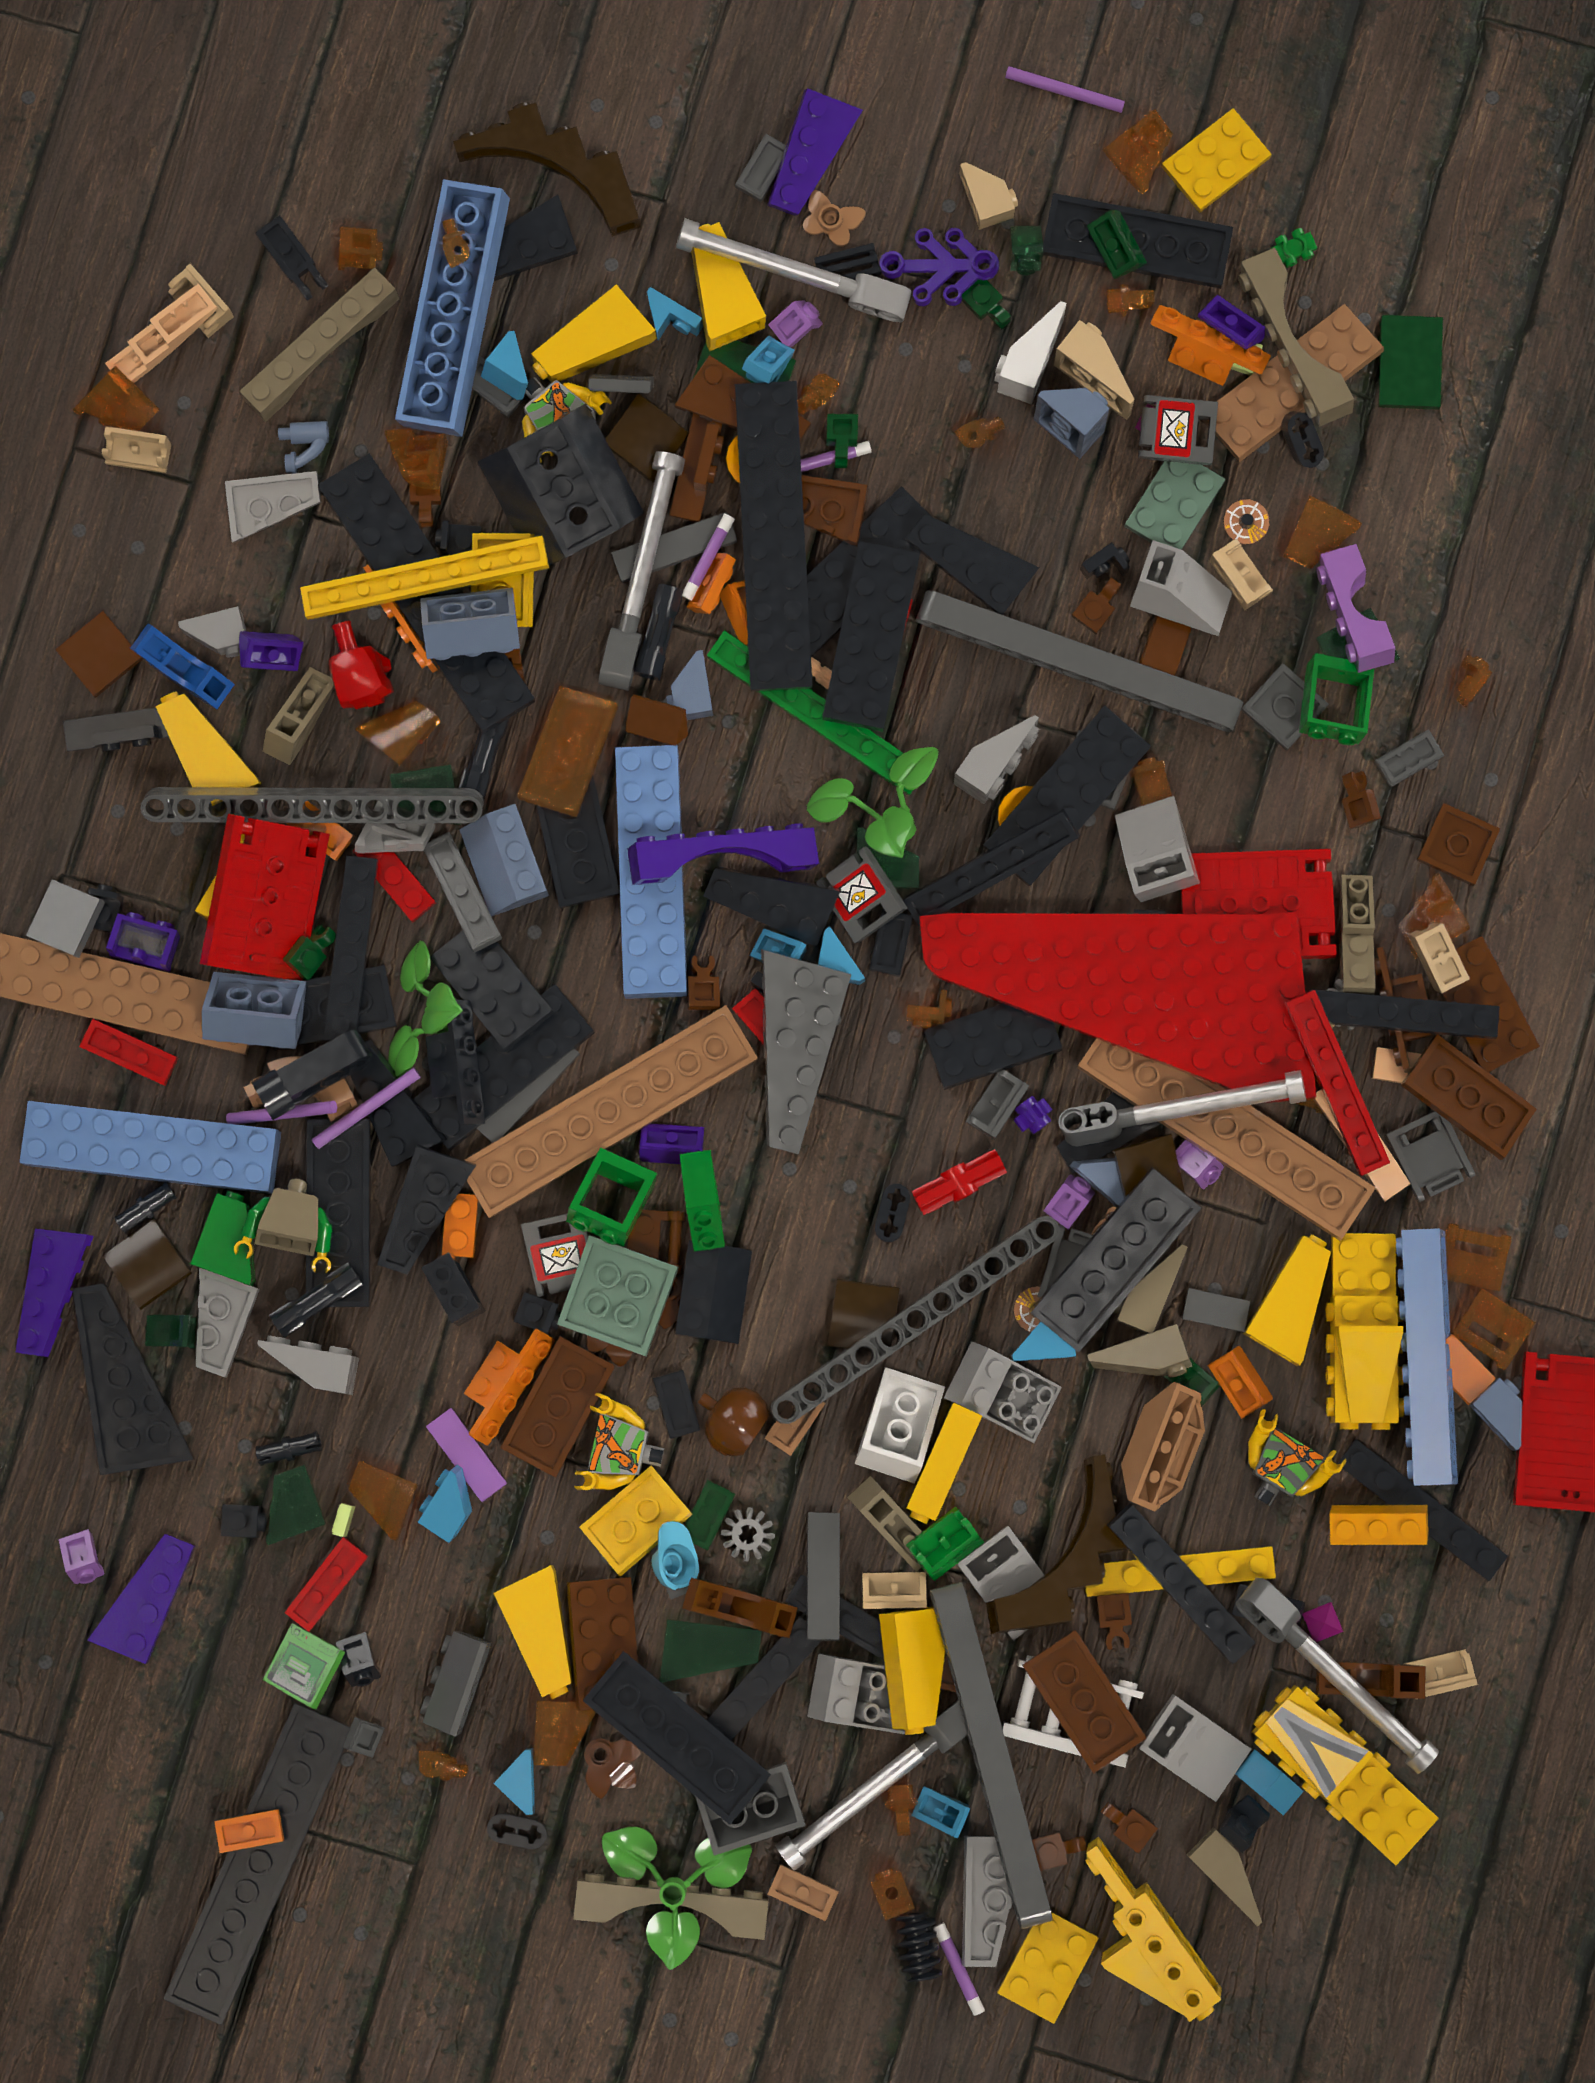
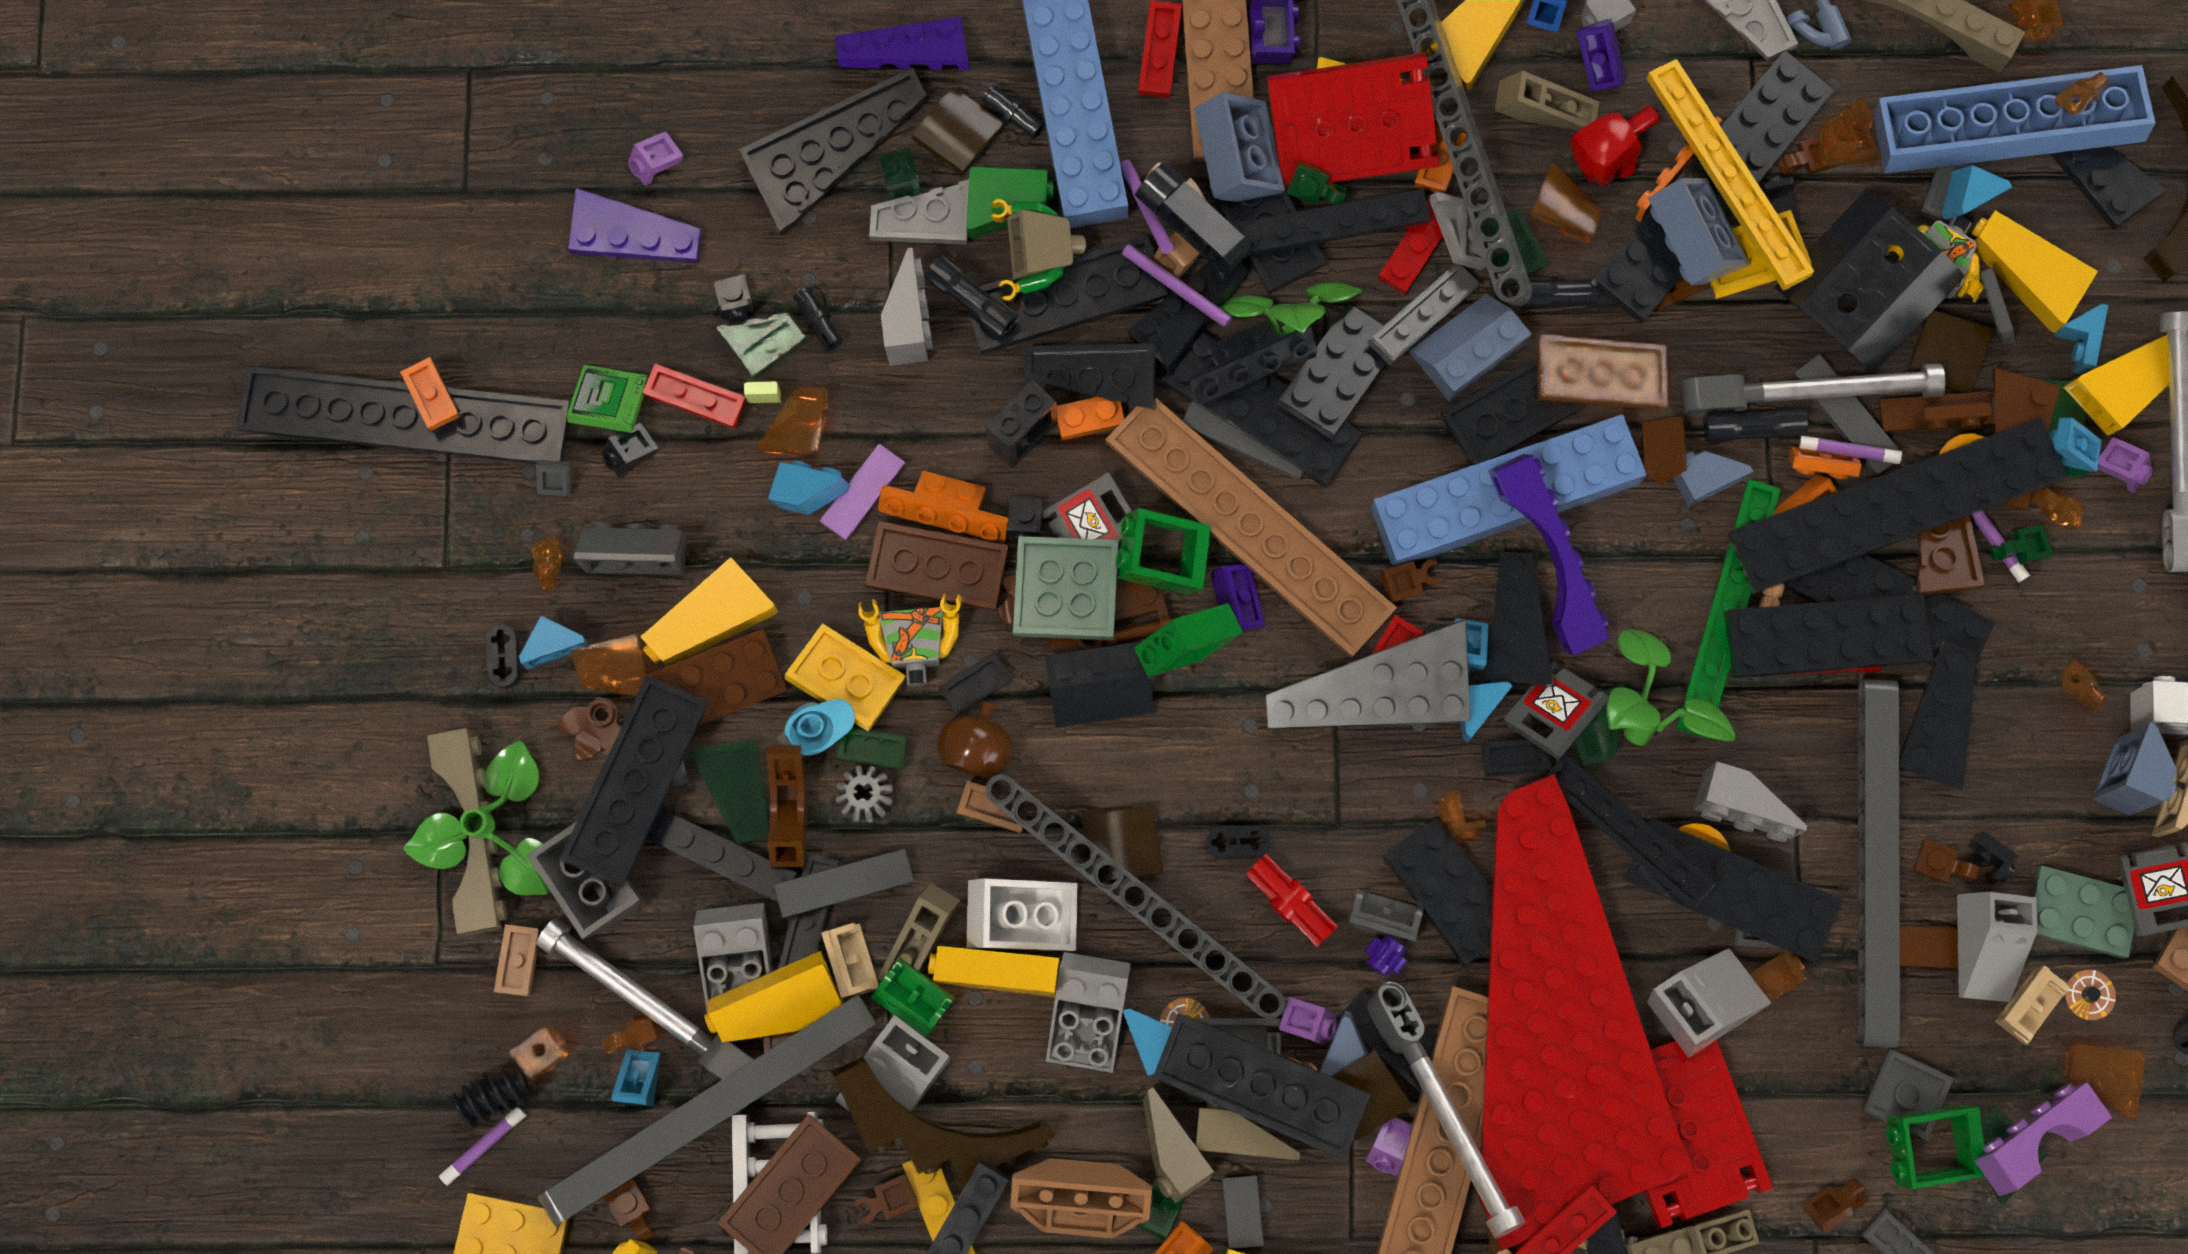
camera: 70 degrees right, 5 degrees down
(984, 1902) = (557, 1151): light grey wing -> none

